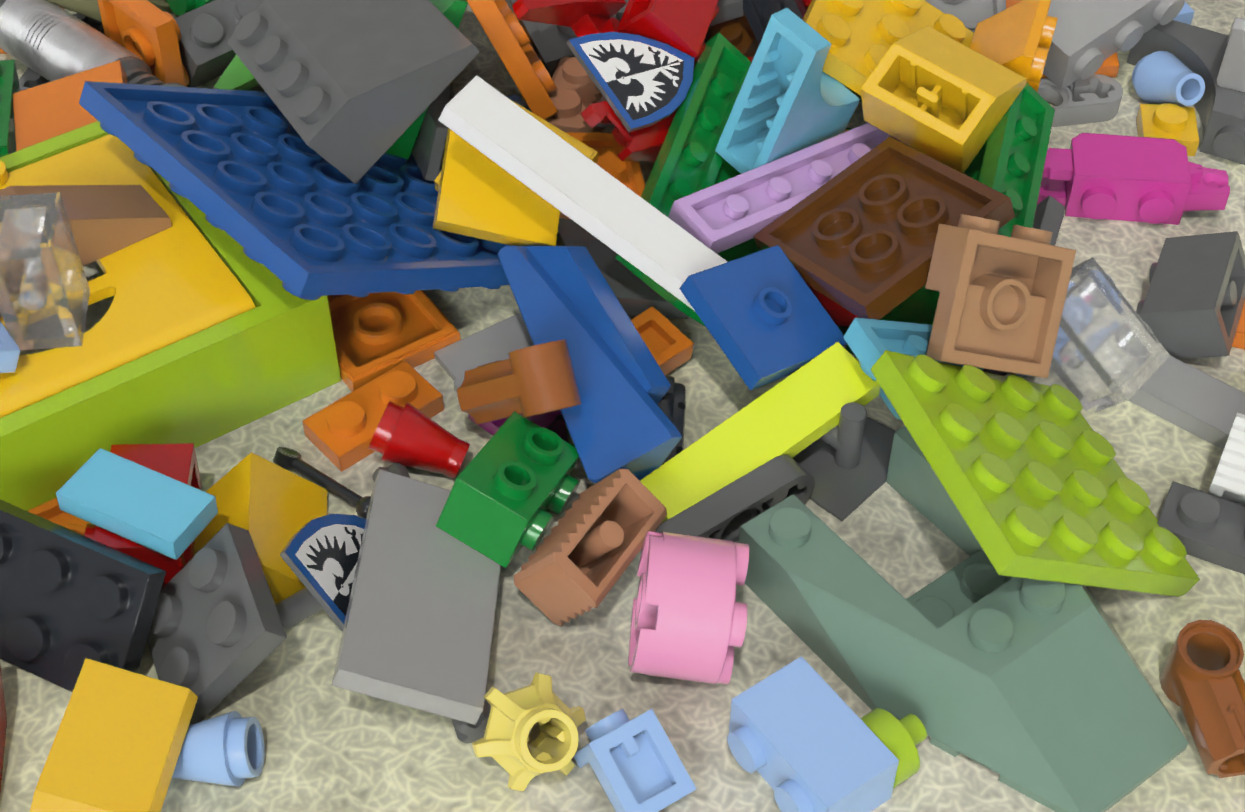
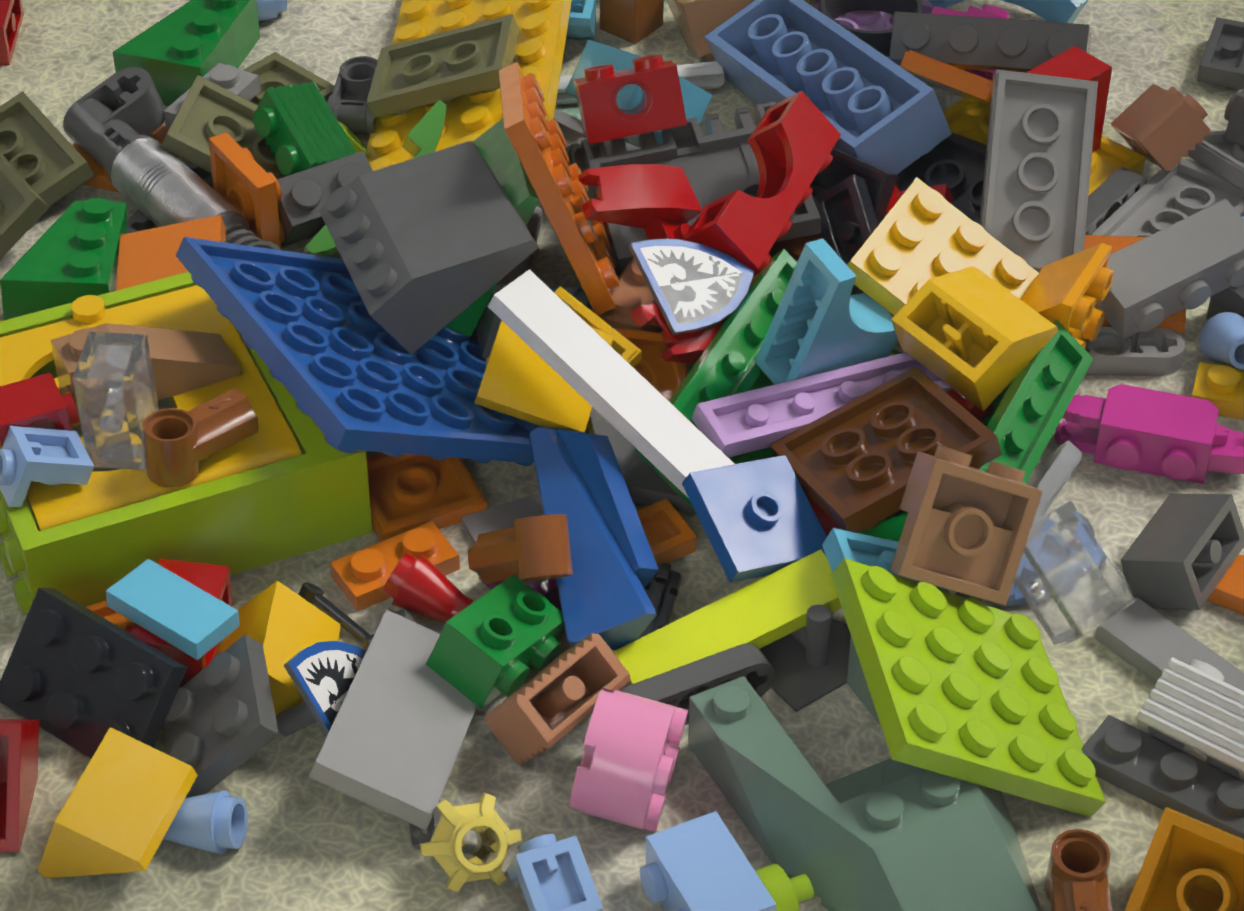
camera: 10 degrees right, 5 degrees down
(117, 307) = (181, 438): none -> dark orange piece

